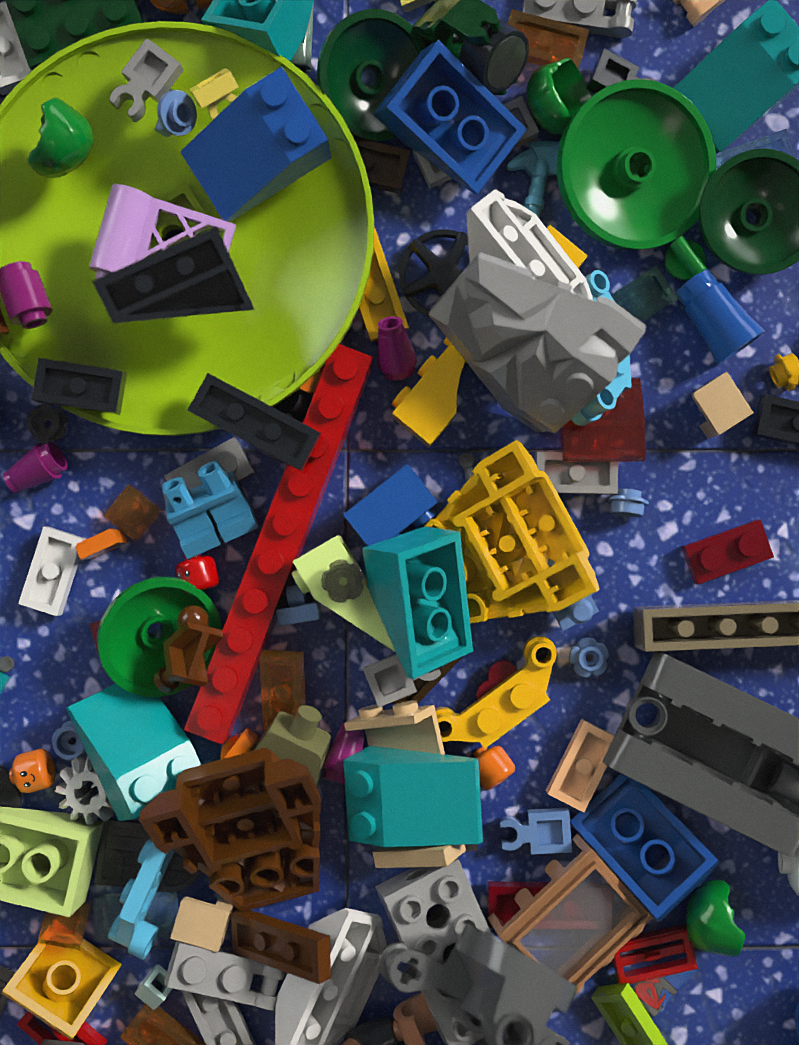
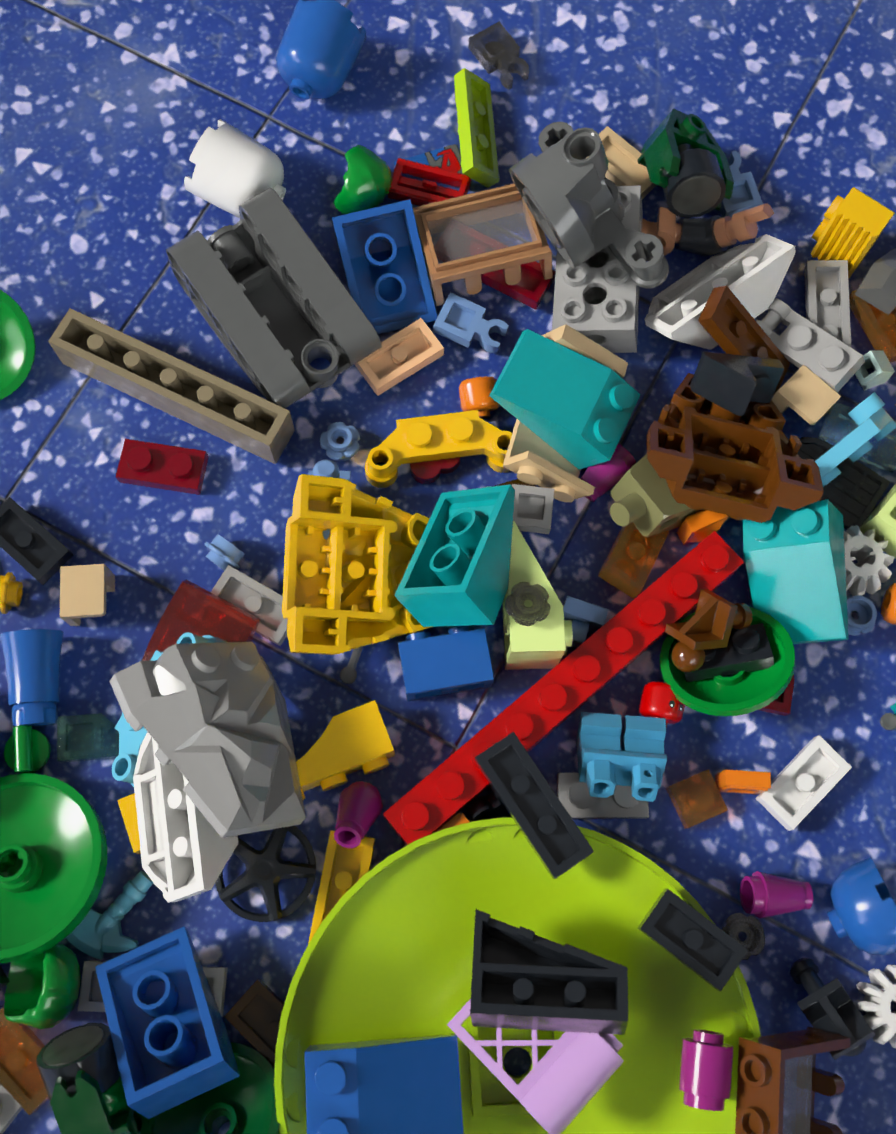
camera: 160 degrees left, 15 degrees down
(146, 653) = (746, 651): none -> black plate
(270, 900) = (736, 380): none -> black slope

